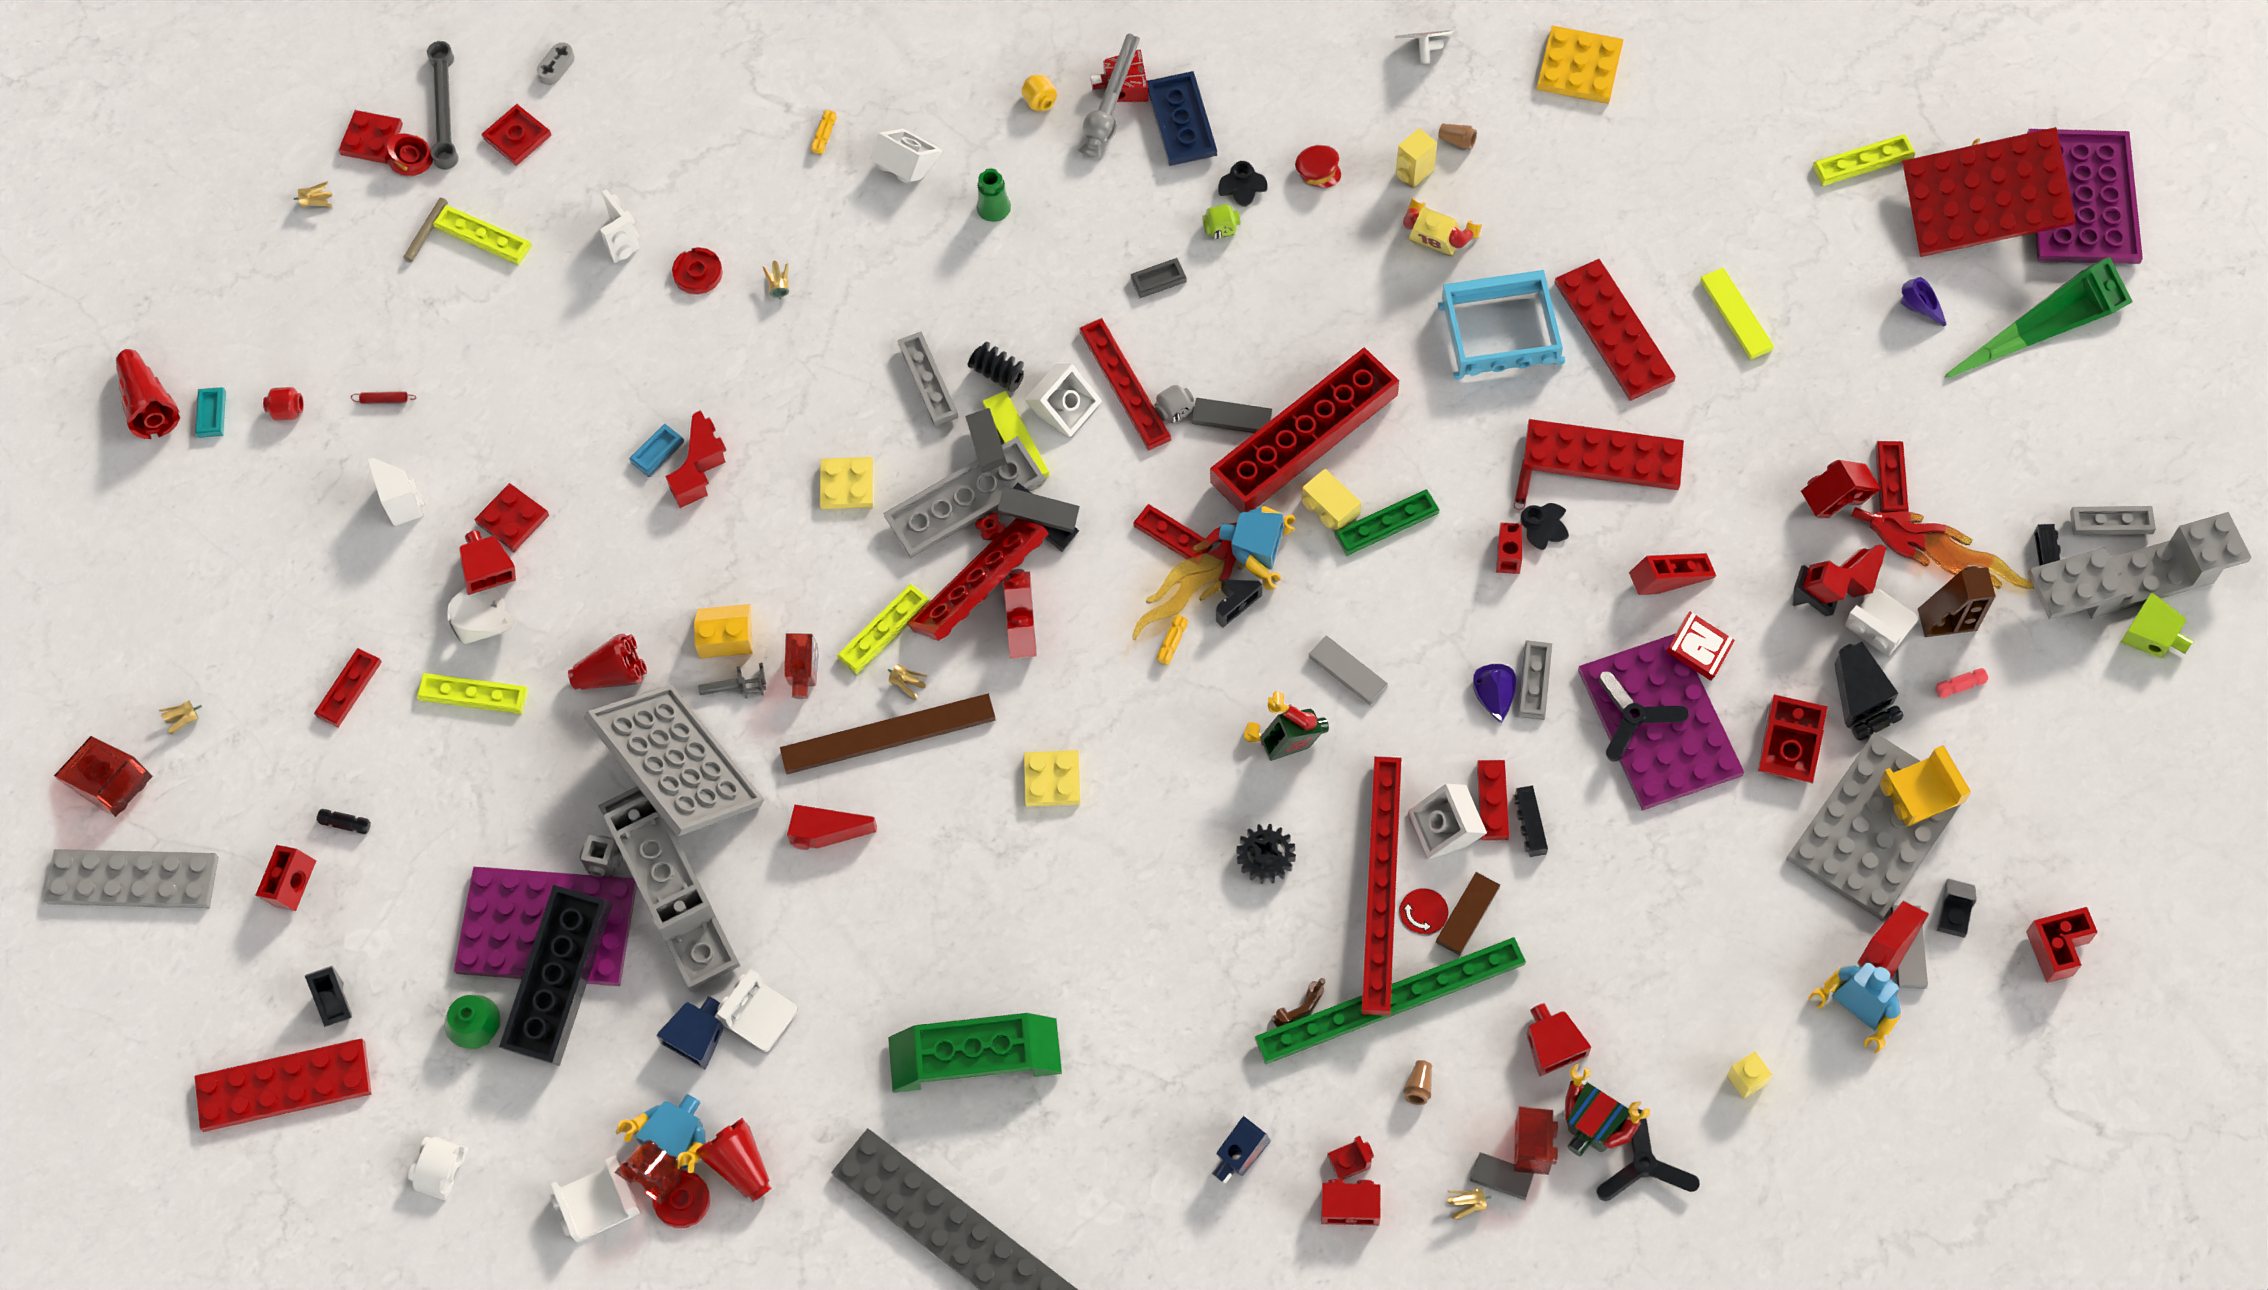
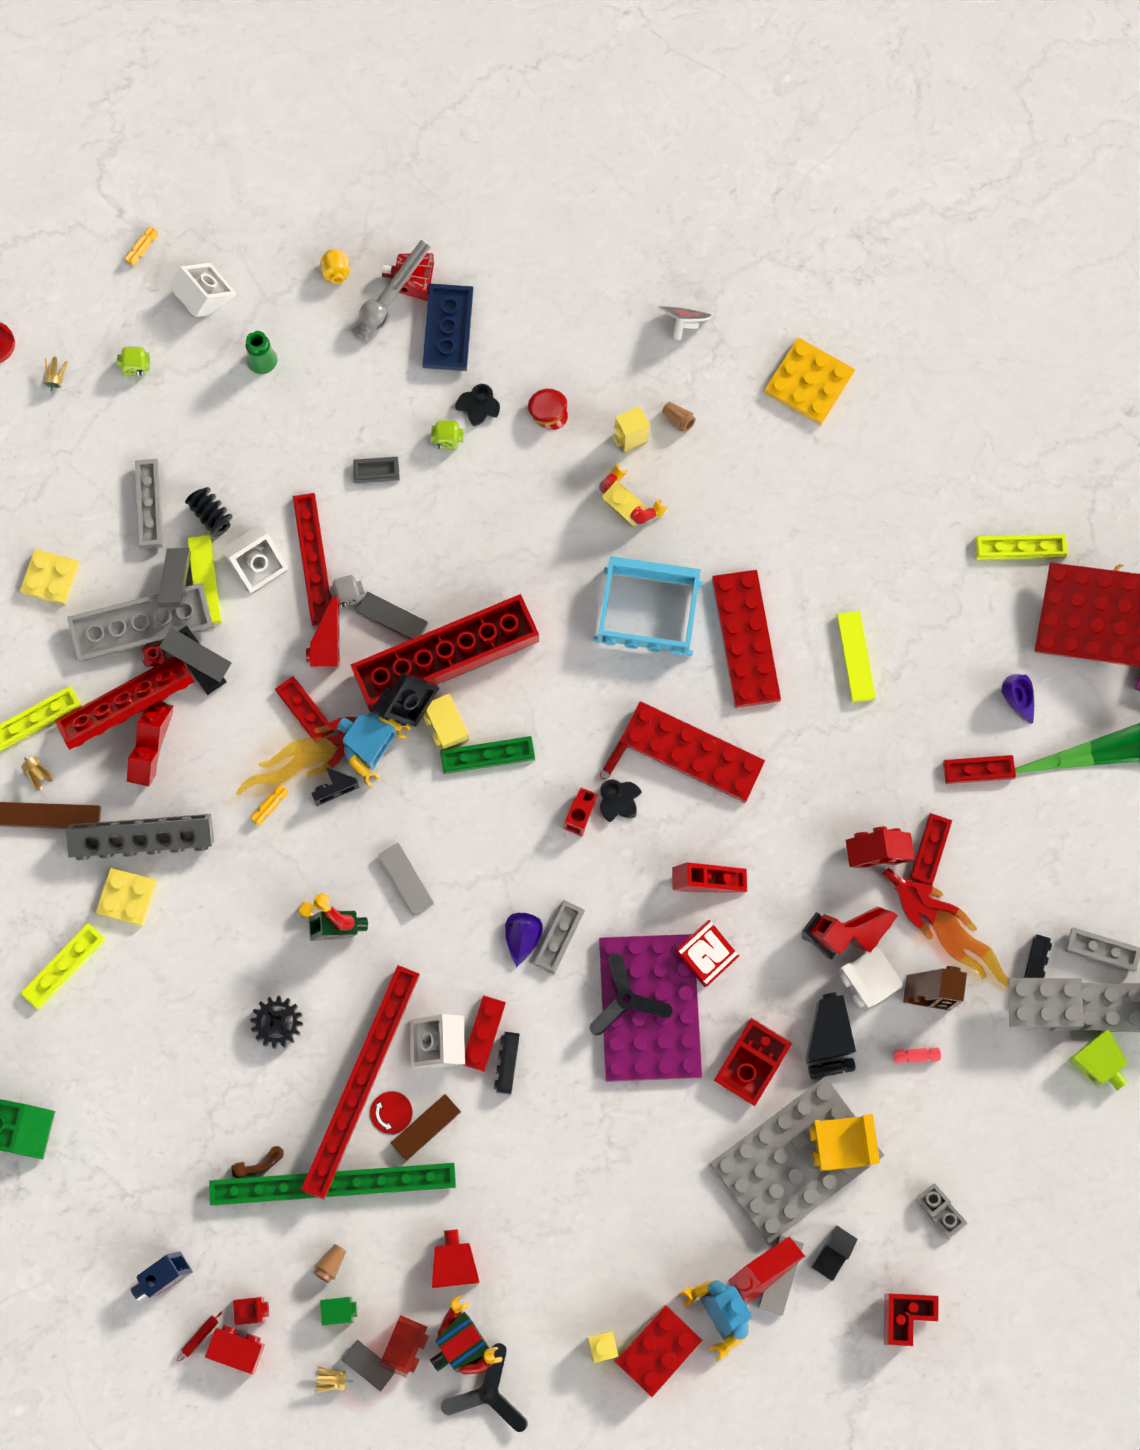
camera: 10 degrees right, 10 degrees up
(859, 244) = (133, 361): none -> lime head
(1008, 869) = (63, 966): none -> neon yellow tile
(1107, 678) = (80, 848): none -> dark grey brick
(1173, 460) = (325, 644): none -> red slope
(1286, 483) = (406, 700): none -> black plate
(1304, 1203) = (200, 1335): none -> red piece
(1447, 1128) = (338, 1311): none -> green brick
(1810, 1060) = (658, 1350): none -> red brick
(1910, 385) = (979, 769): none -> red tile
(2051, 831) = (941, 1211): none -> light grey slope

